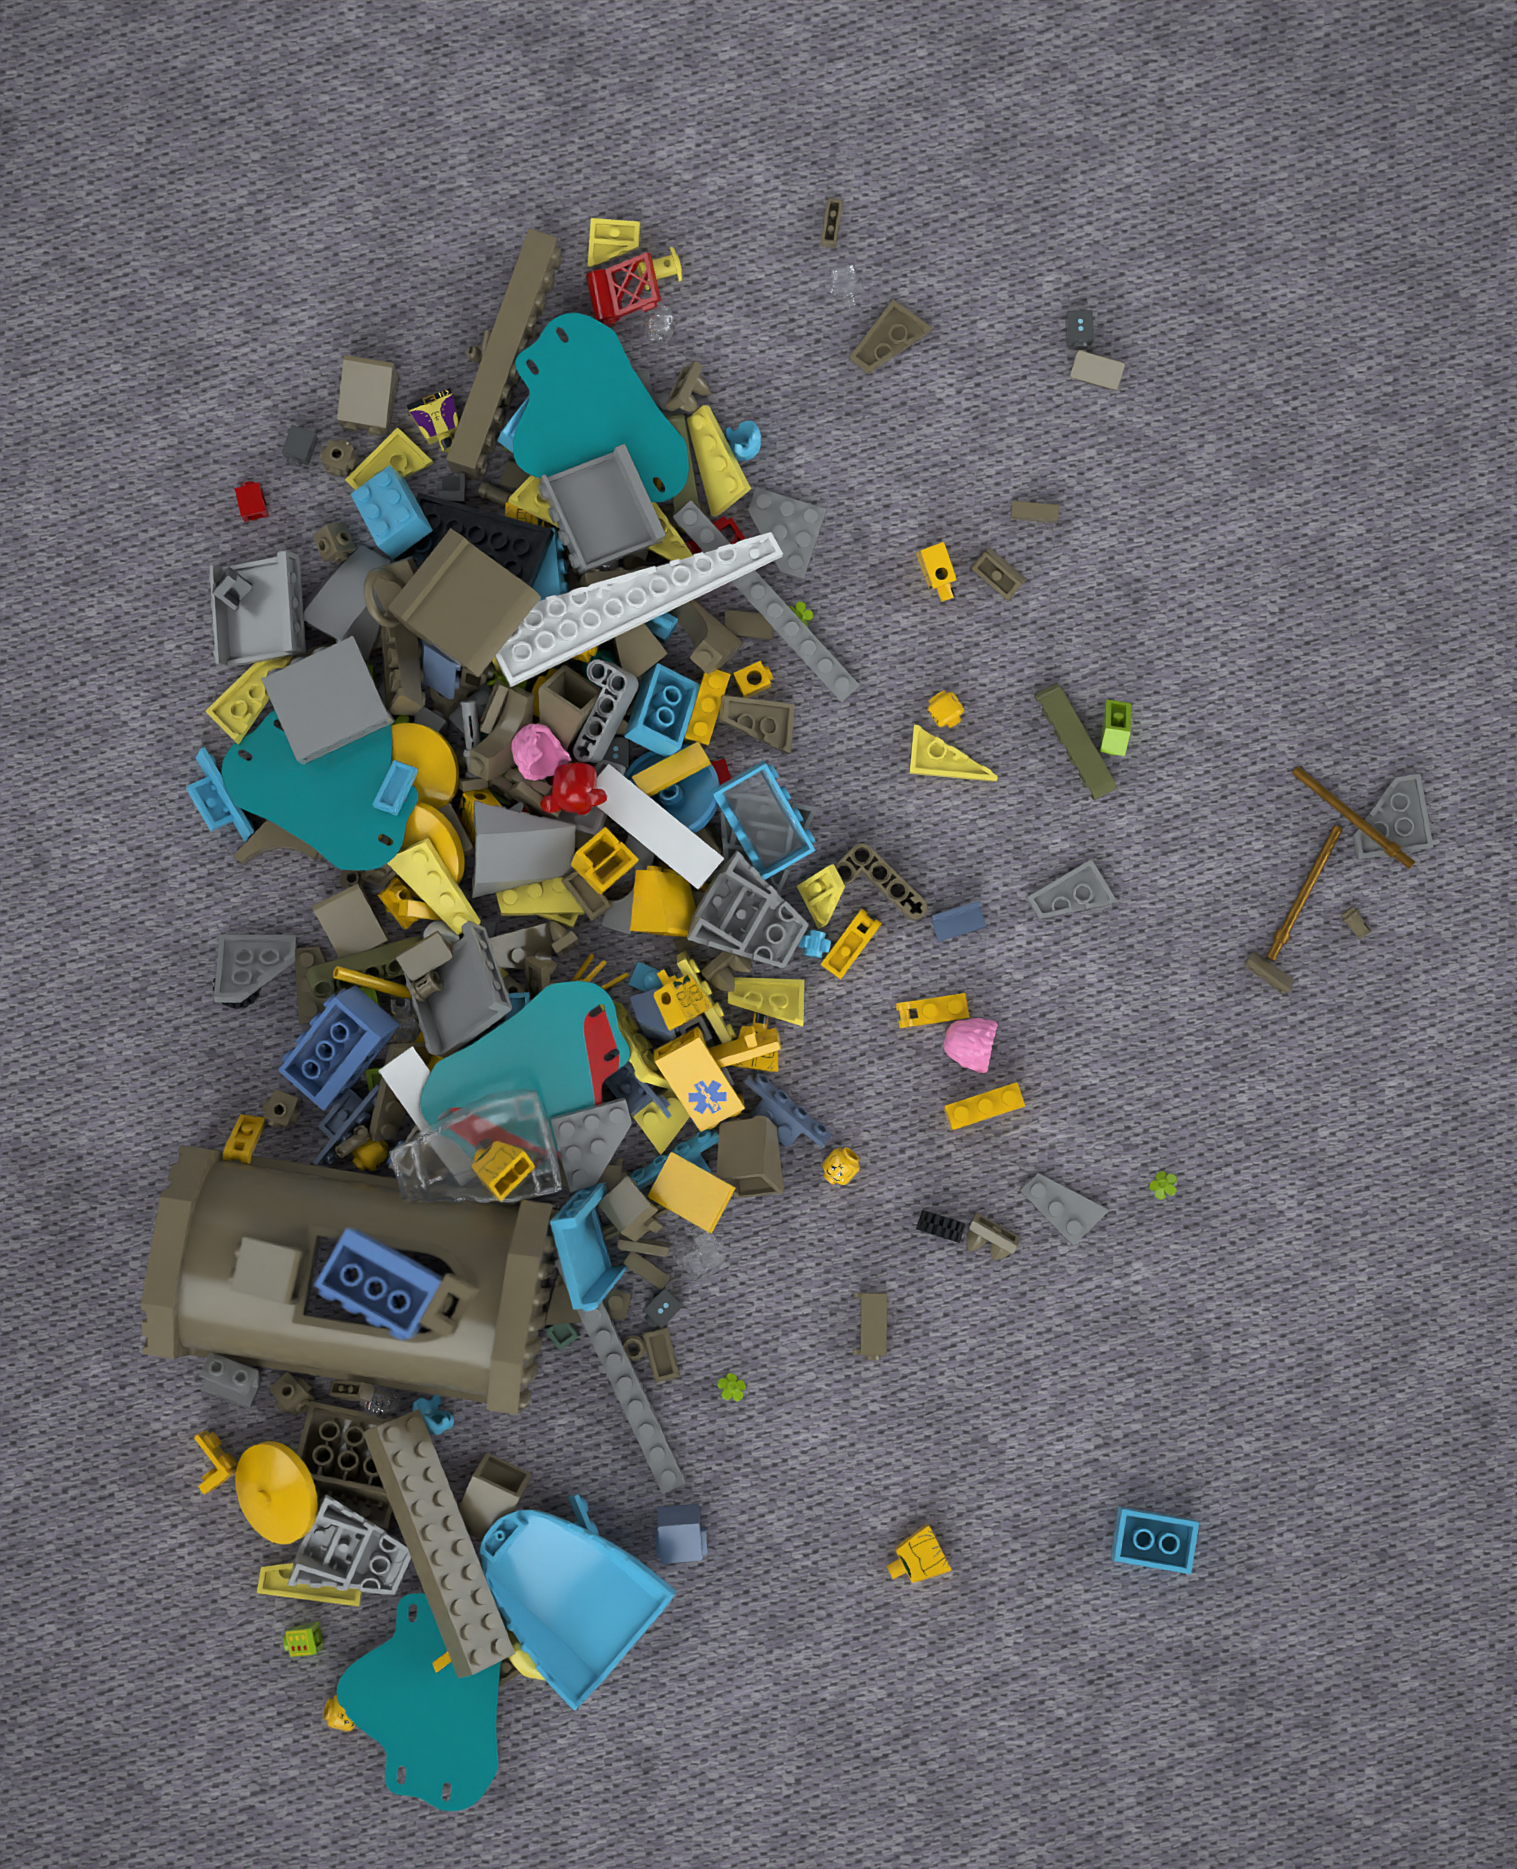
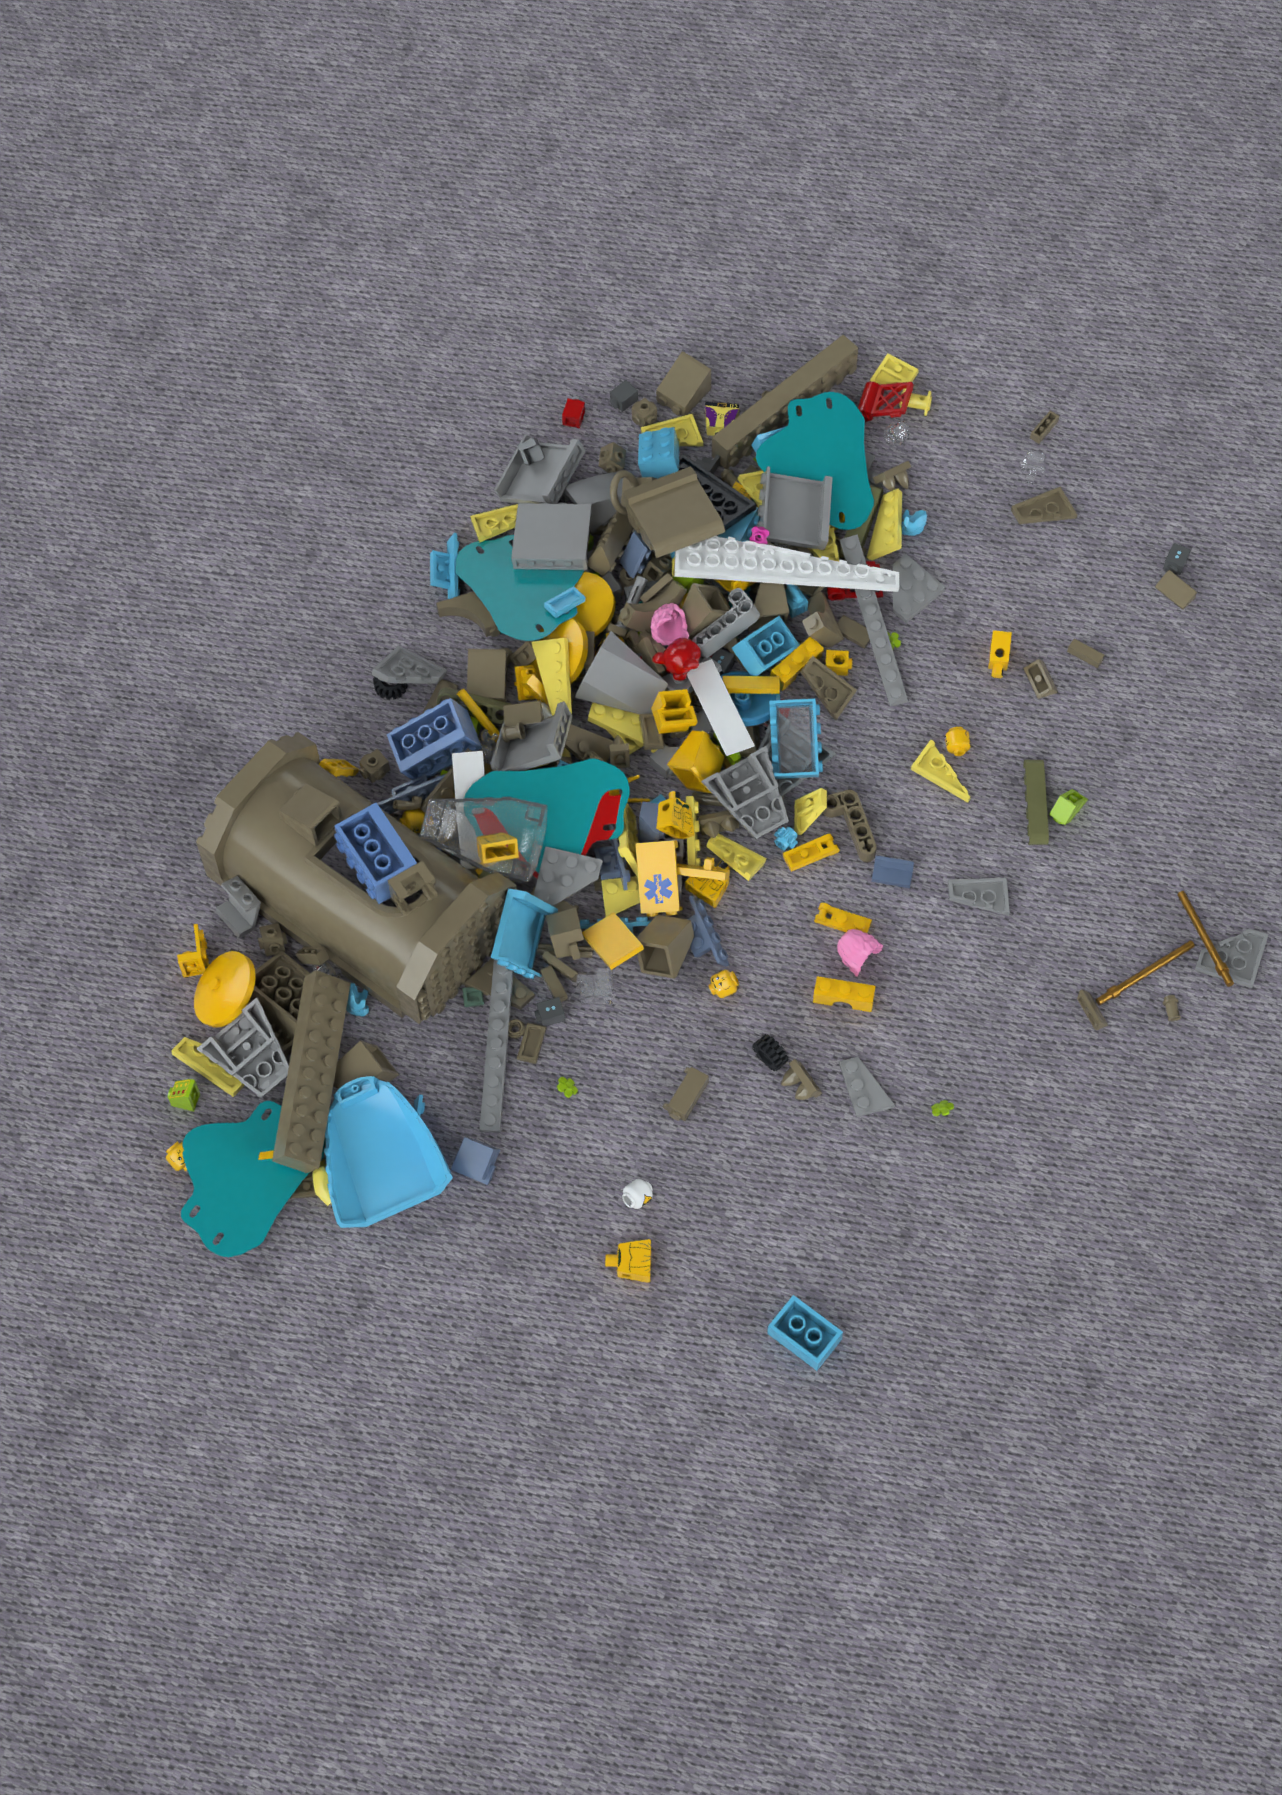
camera: 30 degrees right, 20 degrees down
(582, 576) = (764, 533): none -> dark pink plate
(882, 1474) = (637, 1194): none -> white head

